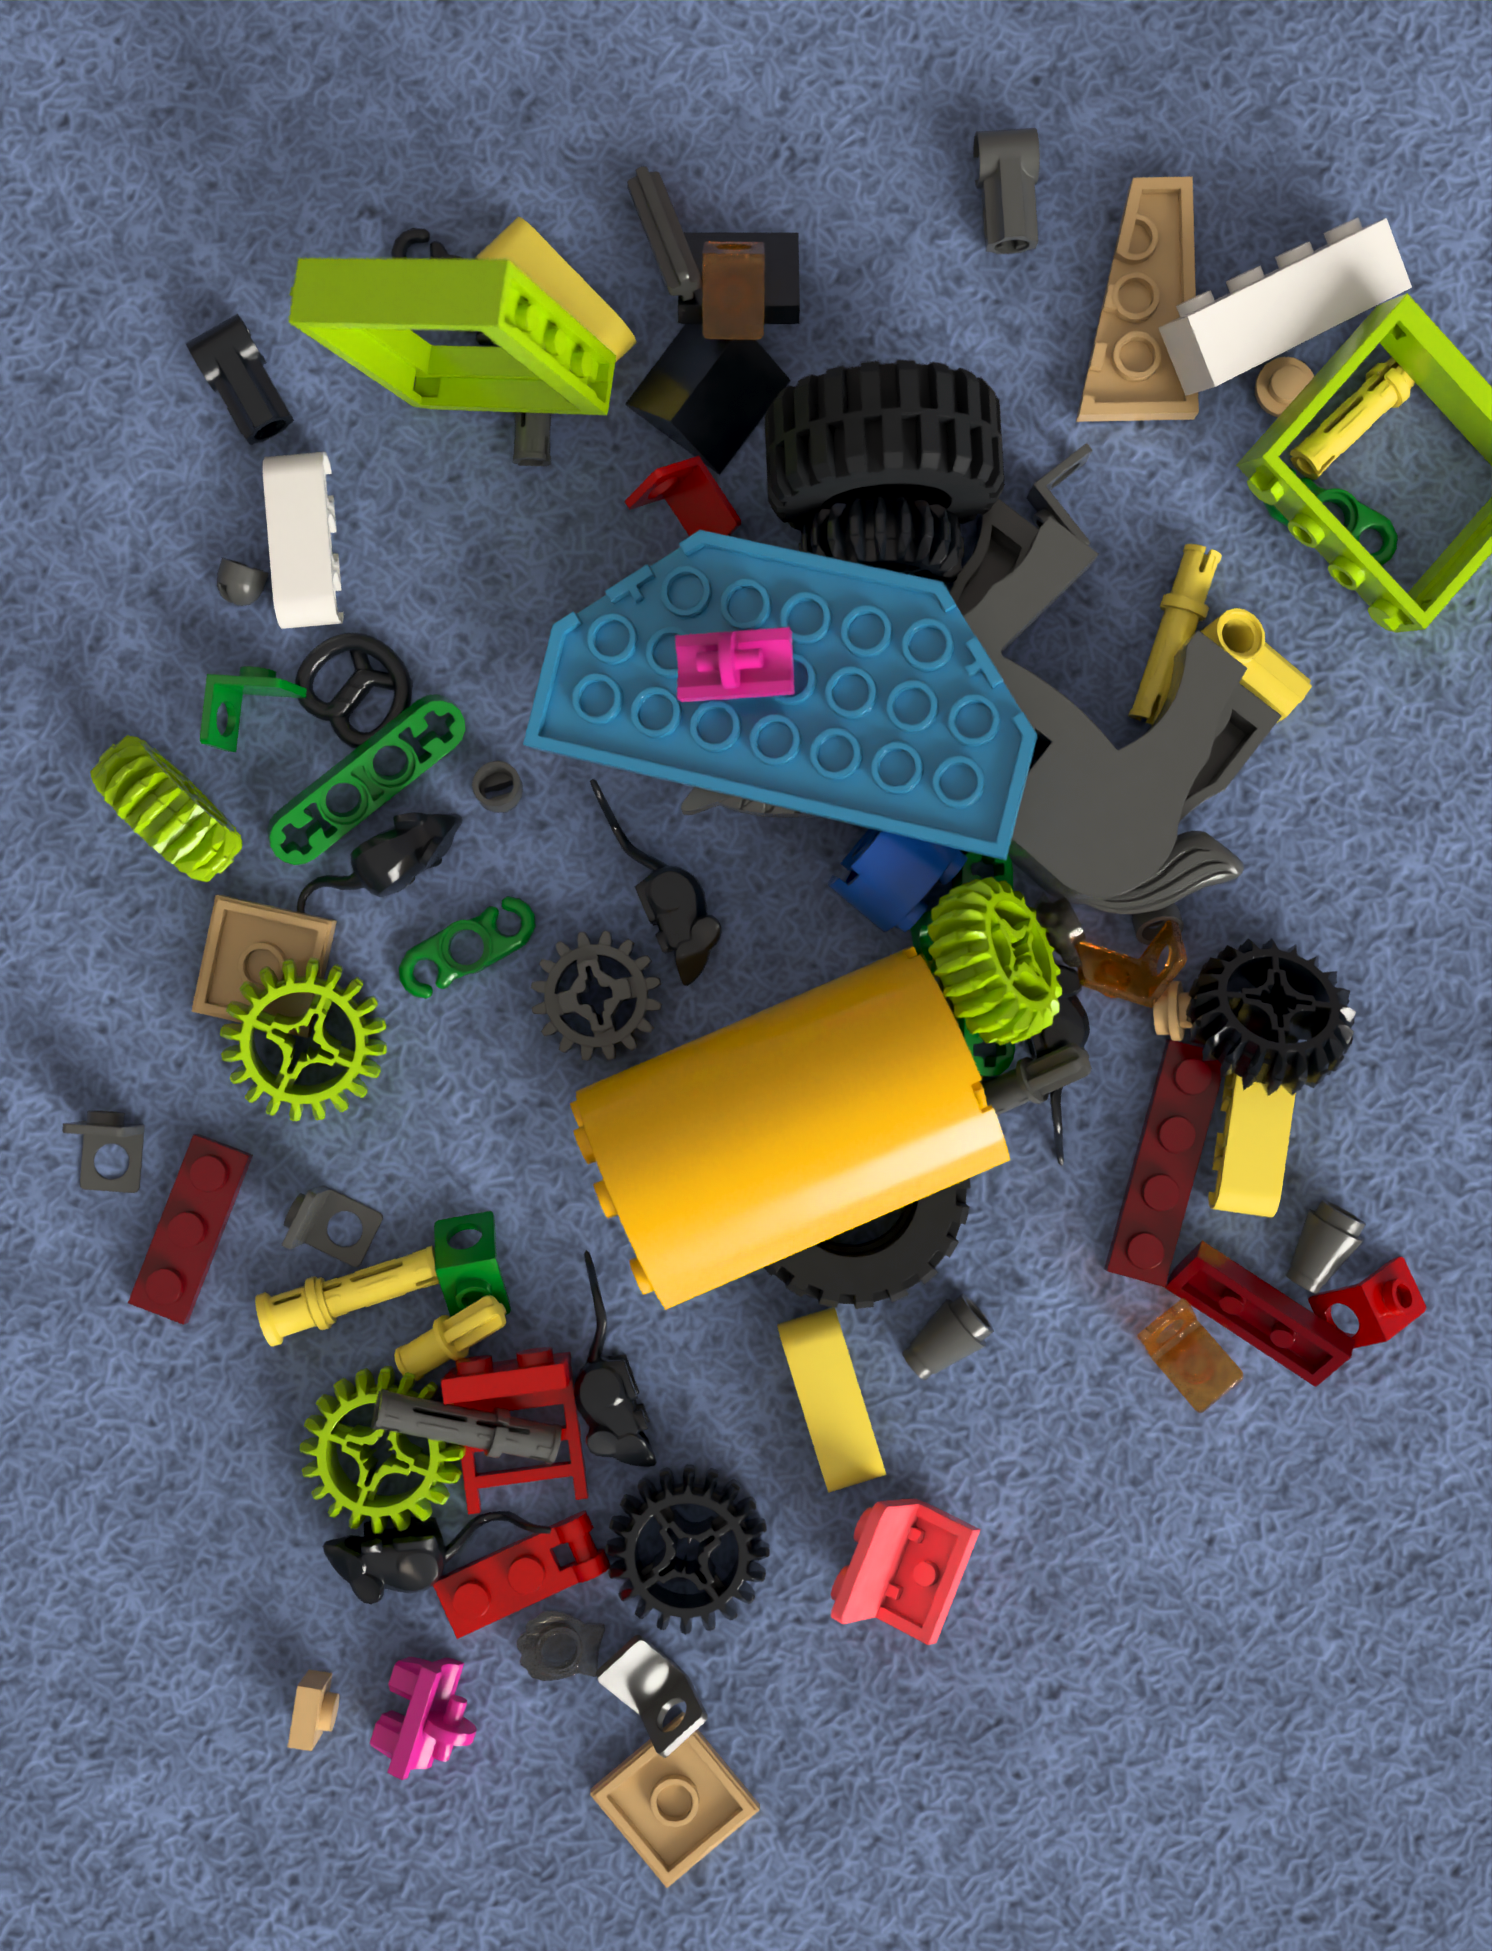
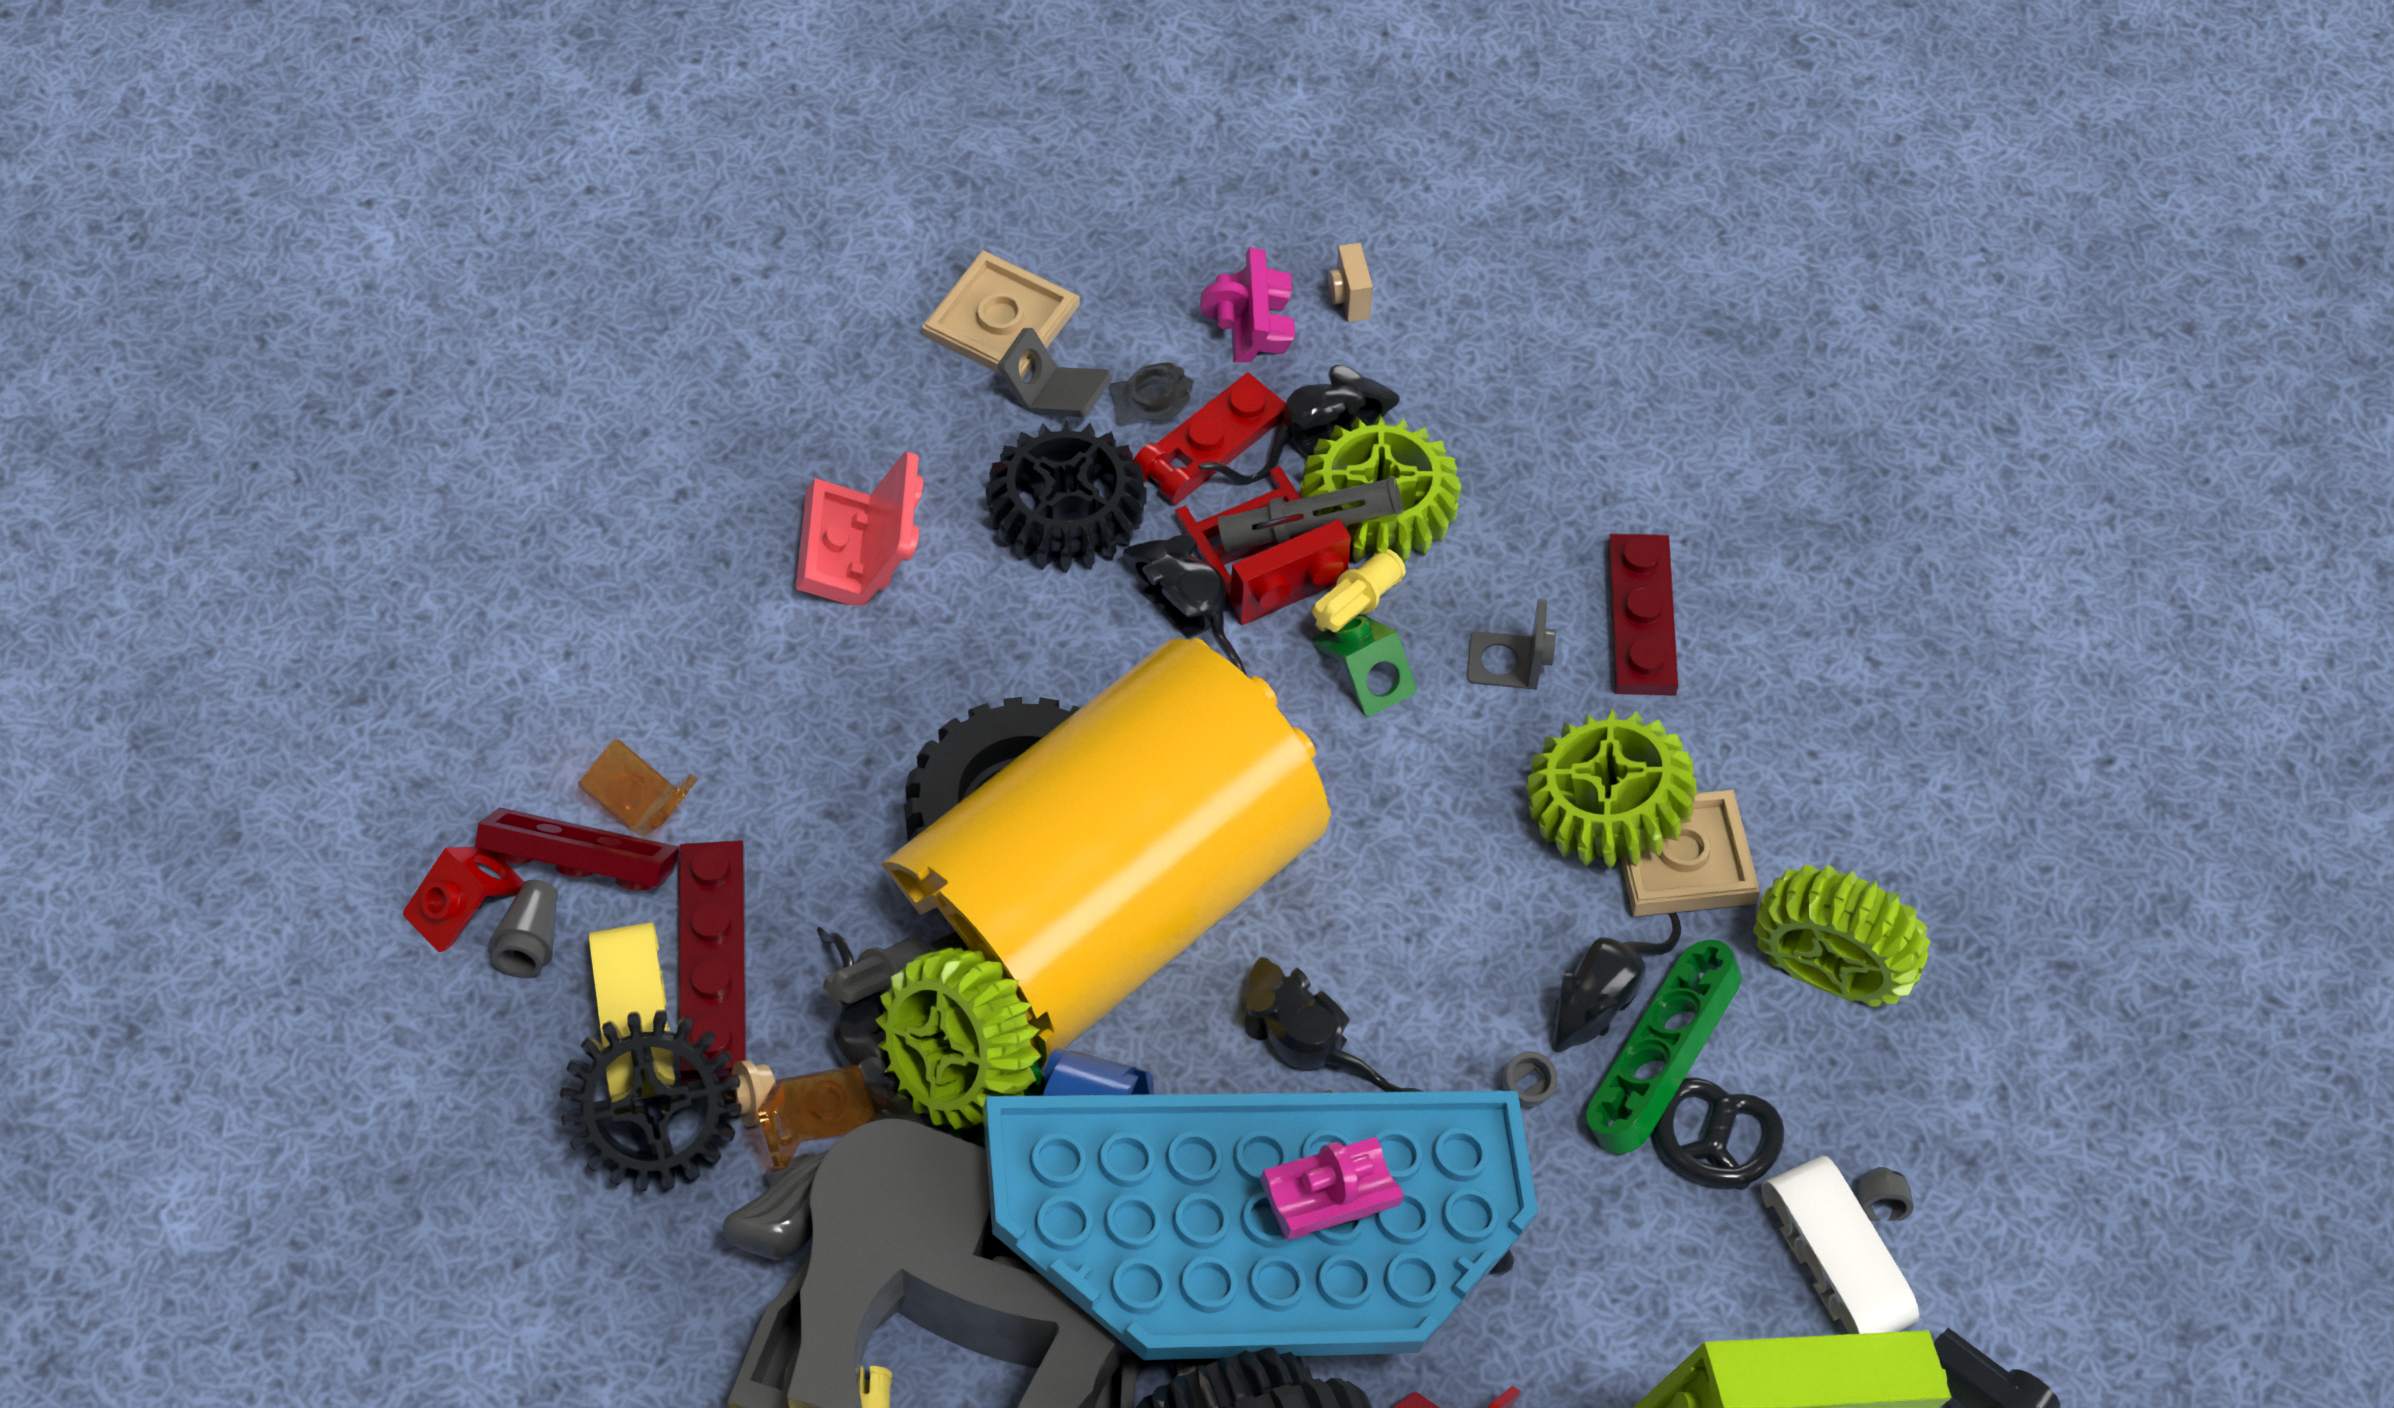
camera: 155 degrees right, 30 degrees down
(104, 1129) = (1755, 657): dark grey bracket -> none
(230, 691) = (1823, 1087): green bracket -> none
(323, 1301) = (1490, 588): light yellow pin -> none
(438, 947) = (1467, 943): green piece -> none
(570, 1001) = (1338, 943): dark grey gear -> none
(831, 1399) = (974, 644): light yellow beam -> none
(948, 1336) = (880, 738): dark grey cone -> none

